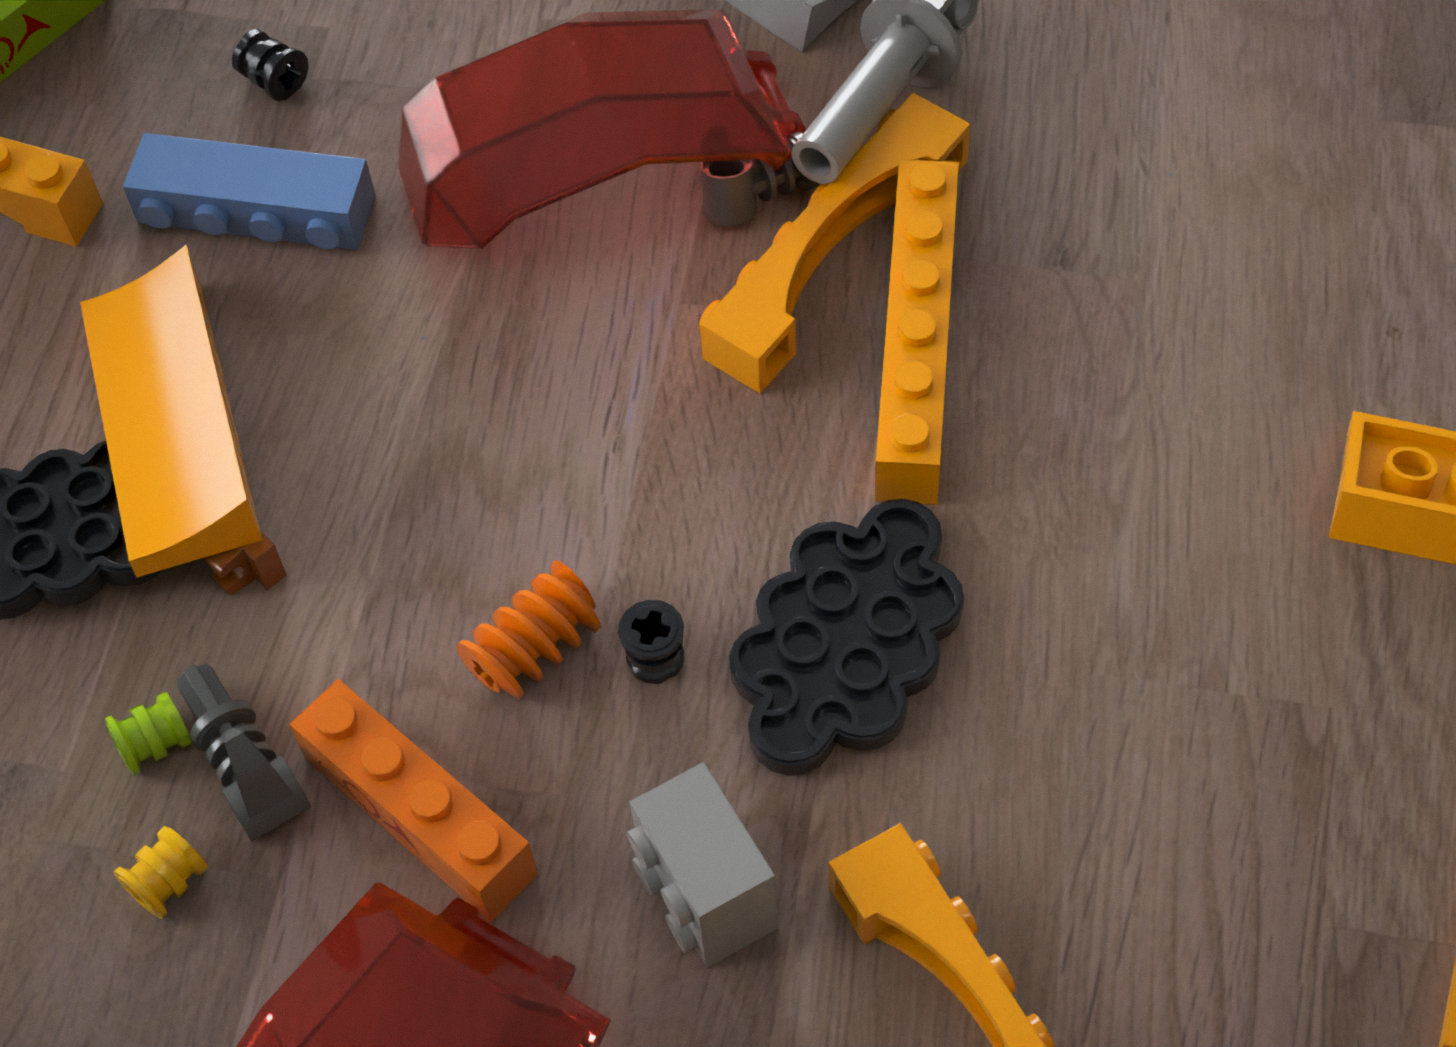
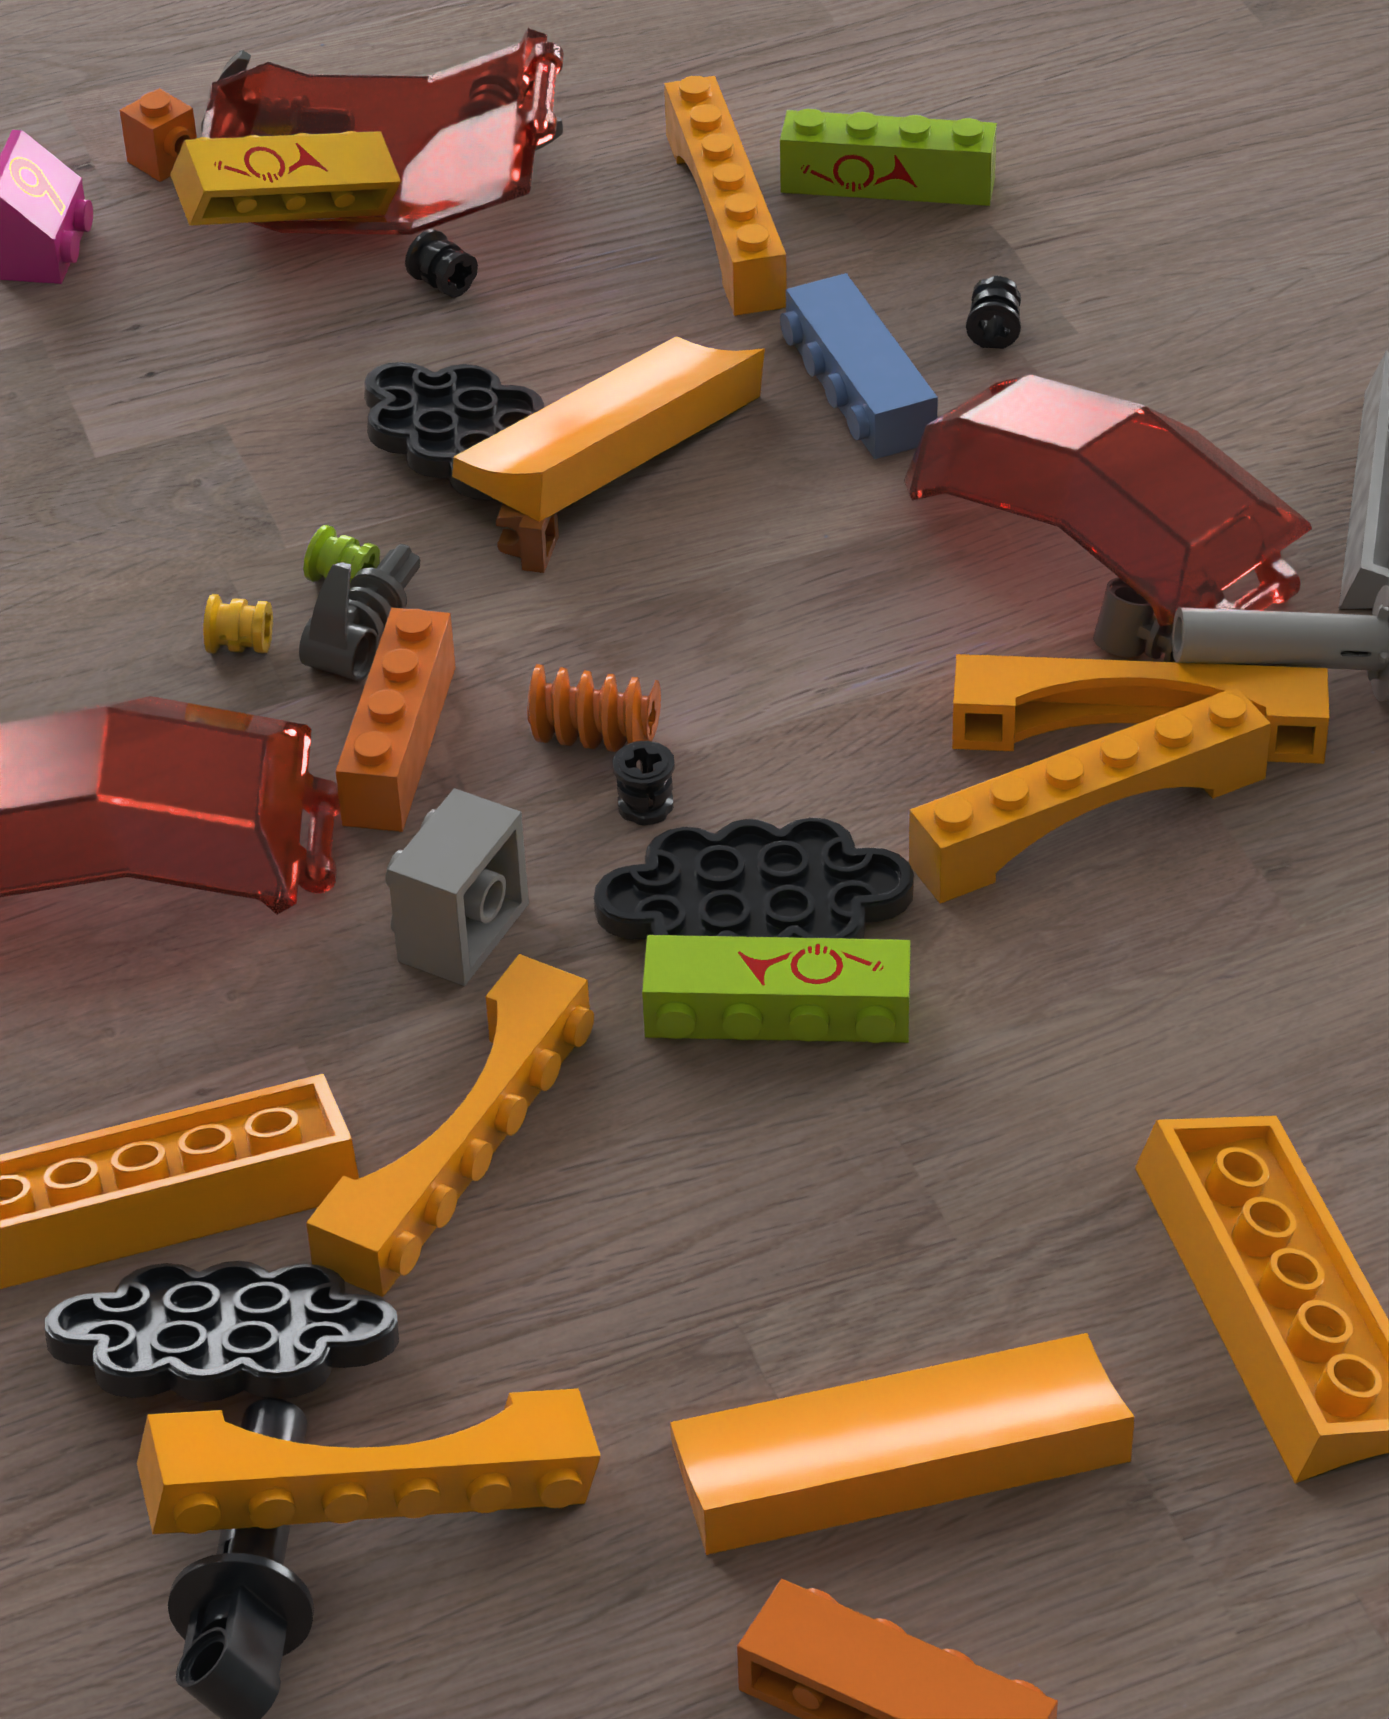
camera: 55 degrees right, 15 degrees down
(983, 681) = (776, 988): none -> lime brick

